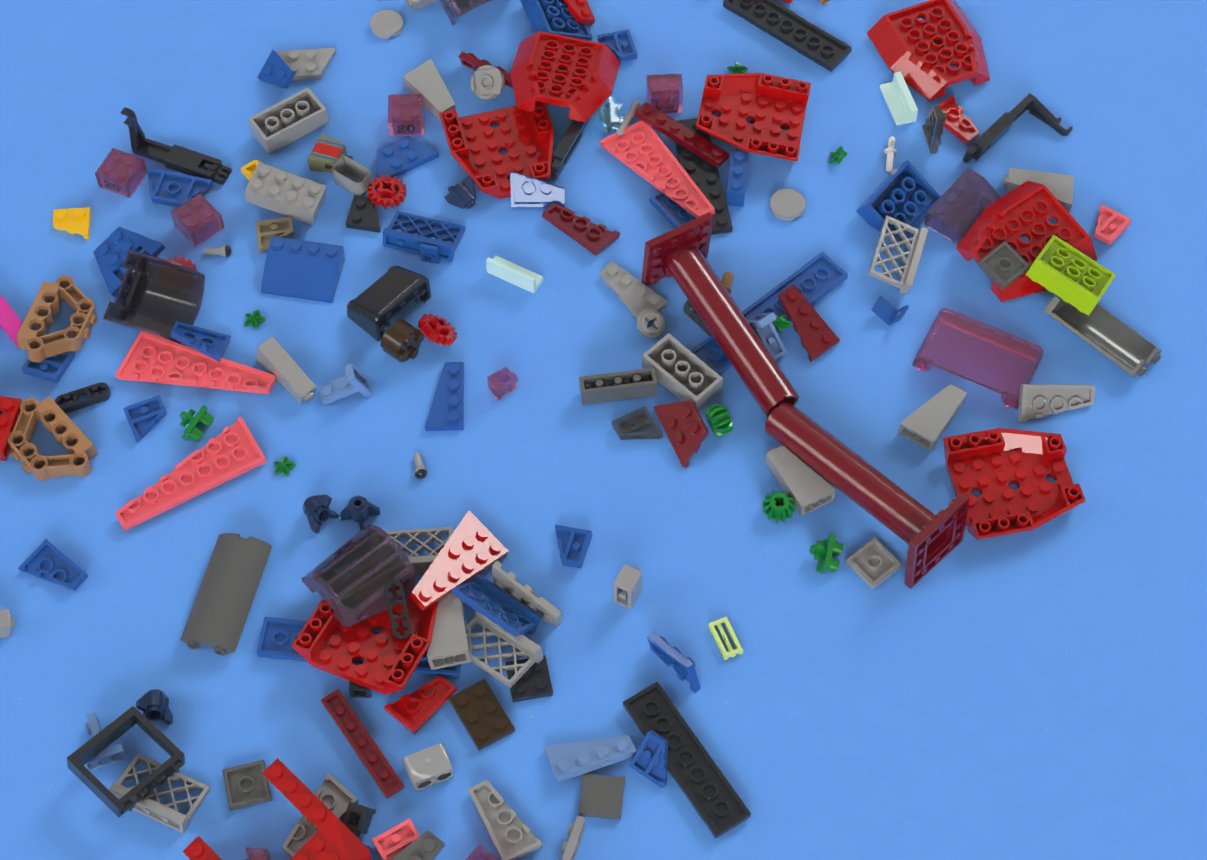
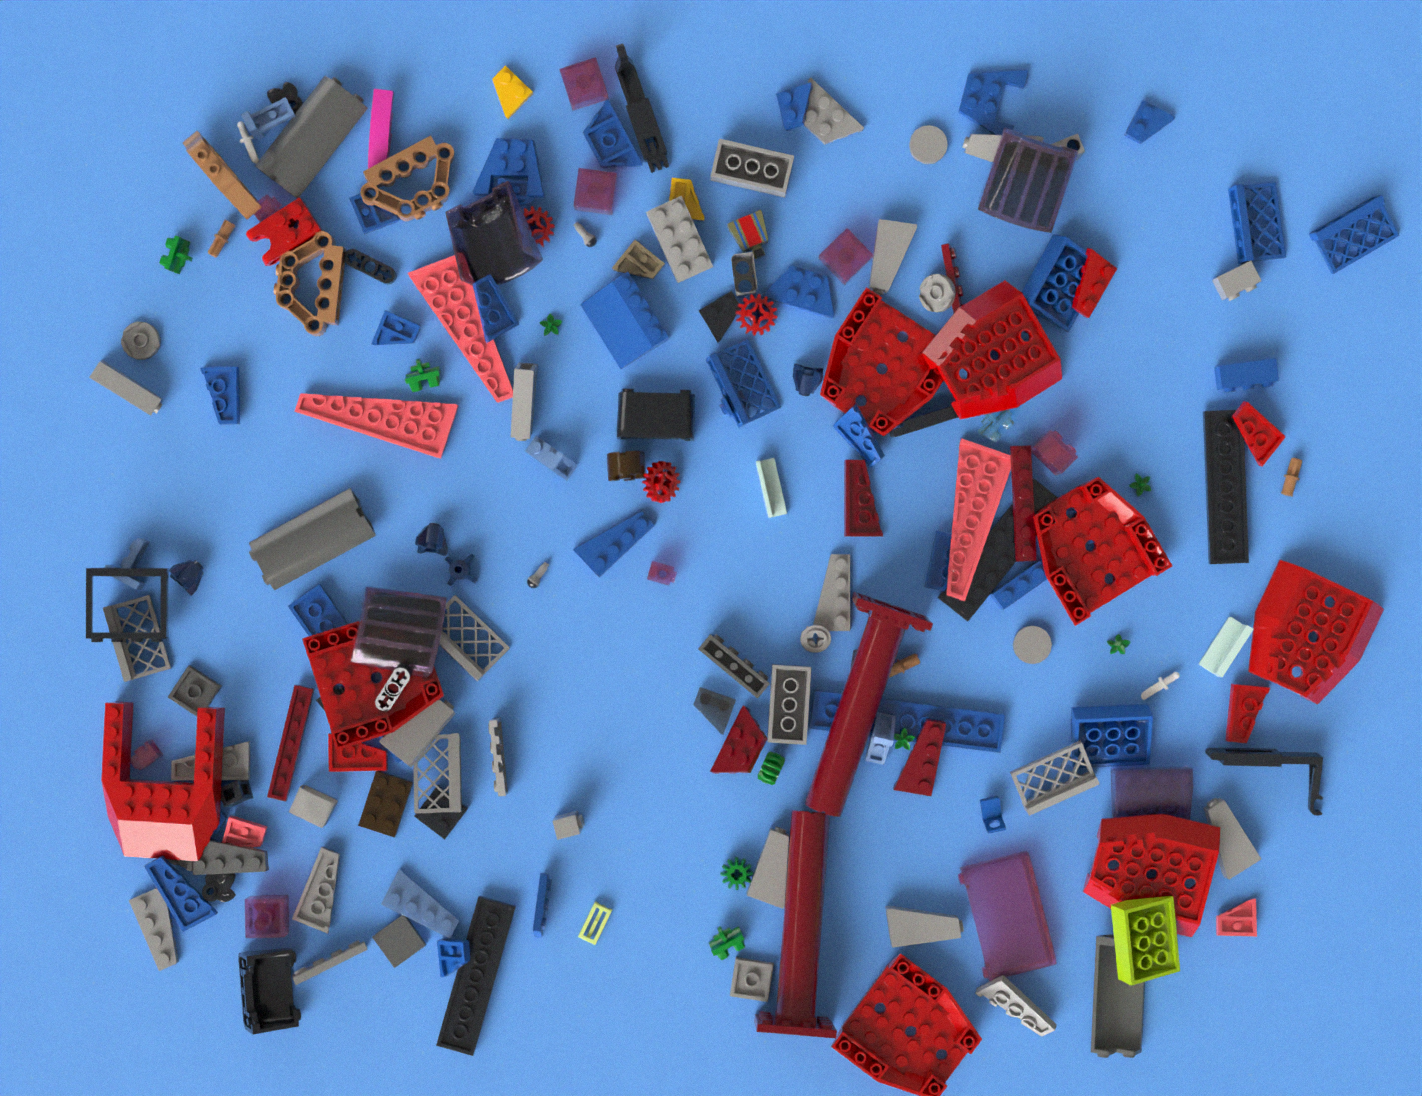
camera: 45 degrees right, 30 degrees up
(285, 465) = (449, 474): green plant -> none
(463, 556) = (487, 685): wing -> none
(498, 606) = (479, 746): blue fence -> none
(573, 545) = (571, 750): blue wing -> none
(620, 44) = (1079, 363): blue wing -> none
(628, 118) = (1005, 441): light grey bar -> none
(934, 128) = (1211, 708): clear smoke wing -> none
(1004, 265) = (1107, 878): dark grey tile -> none

